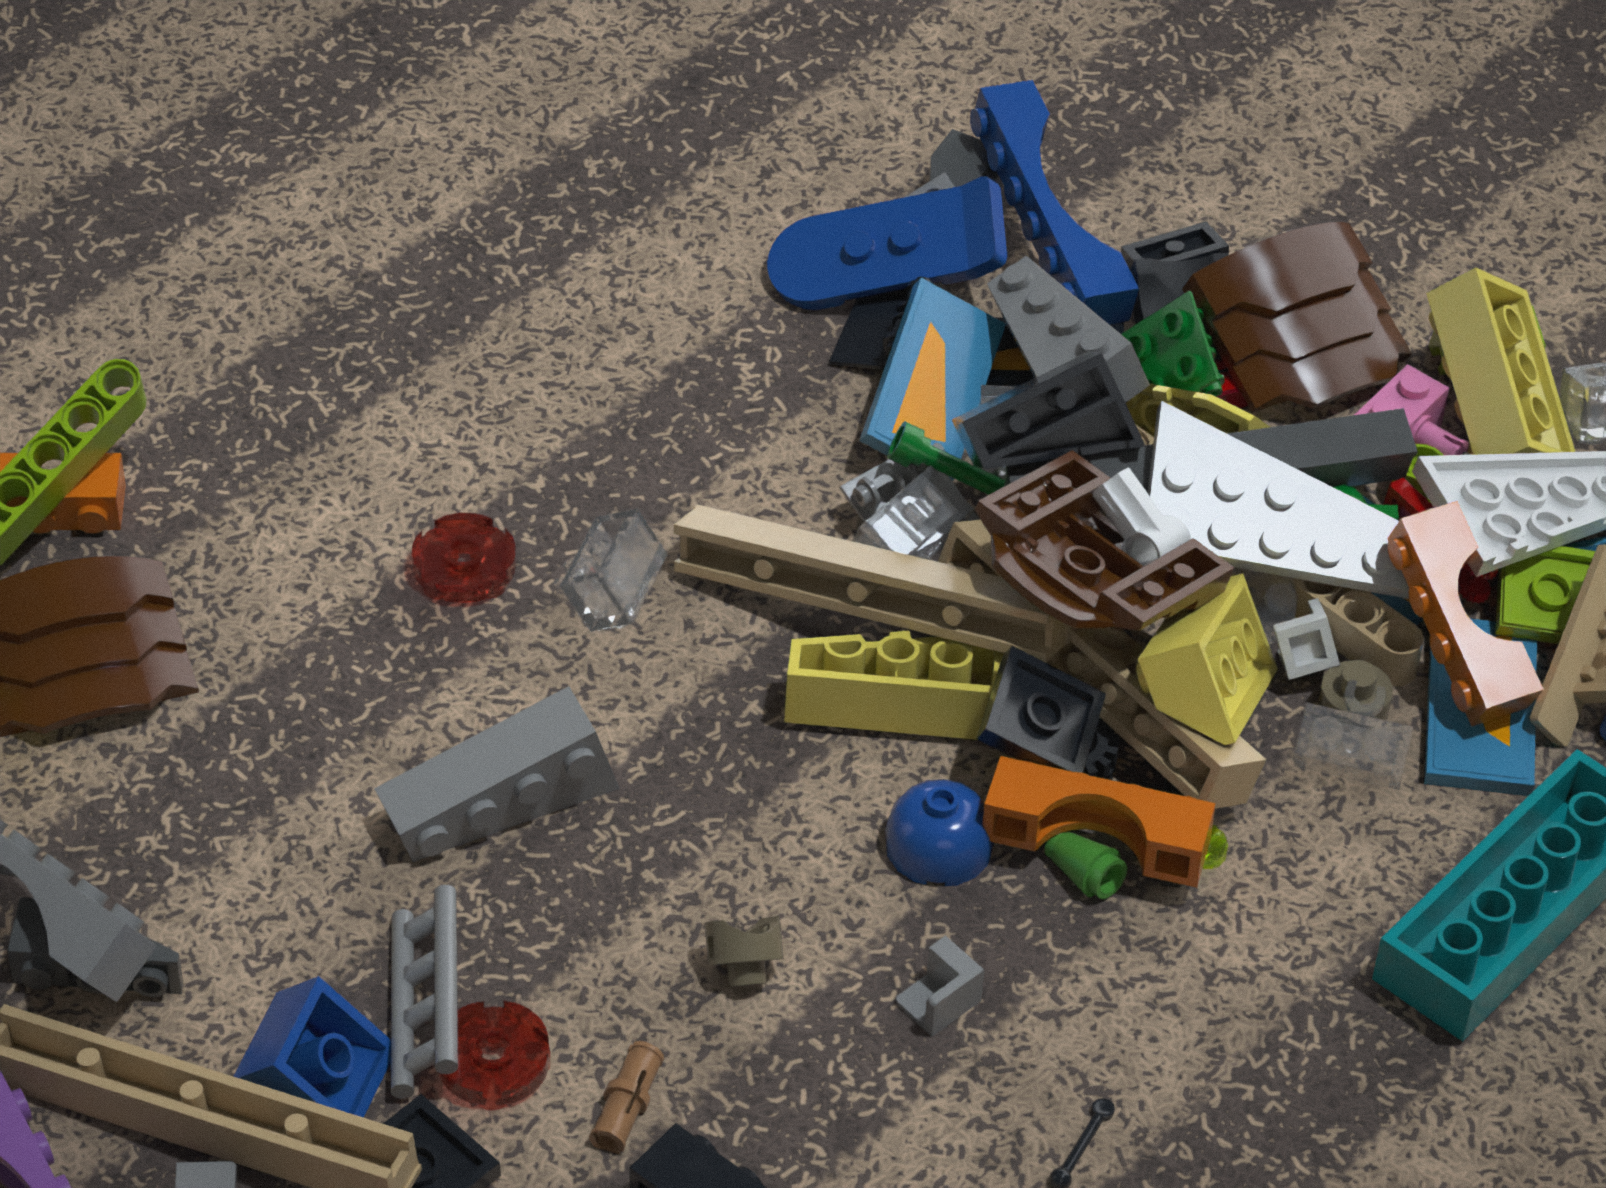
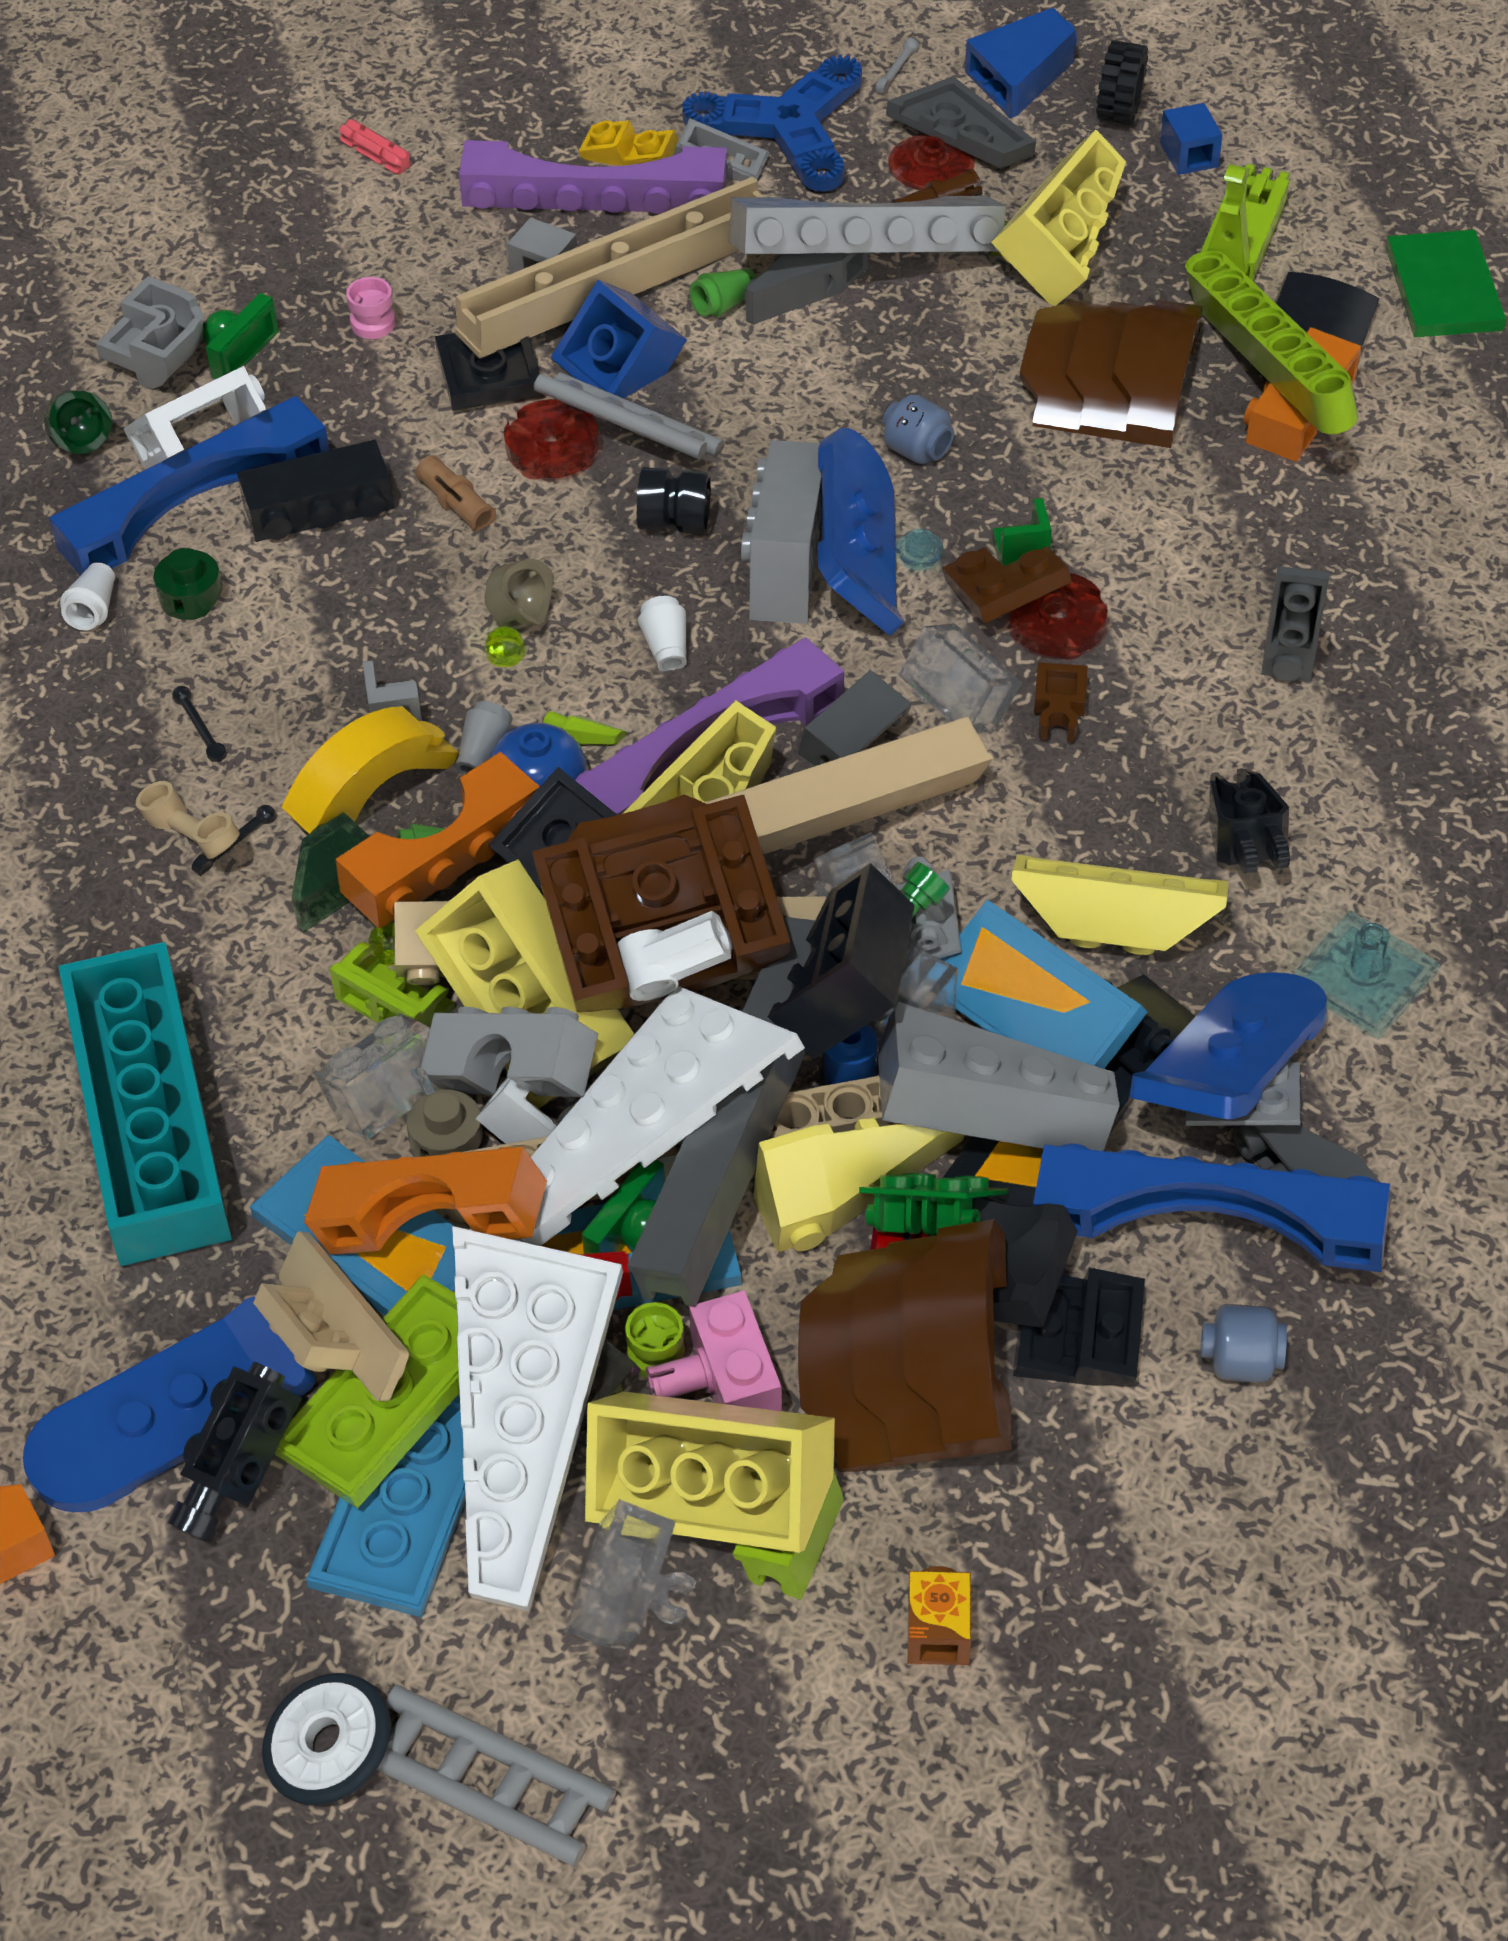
camera: 125 degrees right, 5 degrees up
(164, 1018) = (719, 291): none -> bright green cone
(286, 749) = (918, 429): none -> sand blue head
(387, 610) = (1015, 541): none -> green panel
(392, 364) = (1294, 623): none -> dark grey slope
(443, 702) = (919, 549): none -> clear light blue plate
(476, 595) = (998, 589): none -> reddish brown plate
(491, 707) = (858, 527): none -> blue piece
(525, 889) = (673, 500): none -> black wheel
(564, 517) = (1060, 697): none -> reddish brown plate
(635, 337) = (1248, 821): none -> black hinge
(696, 824) = (665, 631): none -> white cone
(703, 697) = (786, 688): none -> medium lavender arch
(713, 634) = (853, 720): none -> dark grey hinge
(725, 237) = (1367, 973): none -> clear light blue tile
(773, 374) = (1117, 904): none -> light yellow wedge
(794, 950) = (504, 647): none -> clear neon green hinge
(859, 836) = (586, 730): none -> lime bar
(932, 893) = (481, 733): none -> light grey cone
(1059, 925) = (362, 759): none -> yellow arch
(1130, 172) = (1244, 1343): none -> sand blue head
(1177, 914) = (316, 880): none -> clear green slope
(1220, 1005) = (166, 810): none -> tan bar
(1235, 1035) = (264, 815): none -> black hinge
(1264, 823) = (379, 994): none -> lime hinge
(1287, 672) = (546, 1051): none -> light grey arch
(1478, 241) = (939, 1616): none -> brick

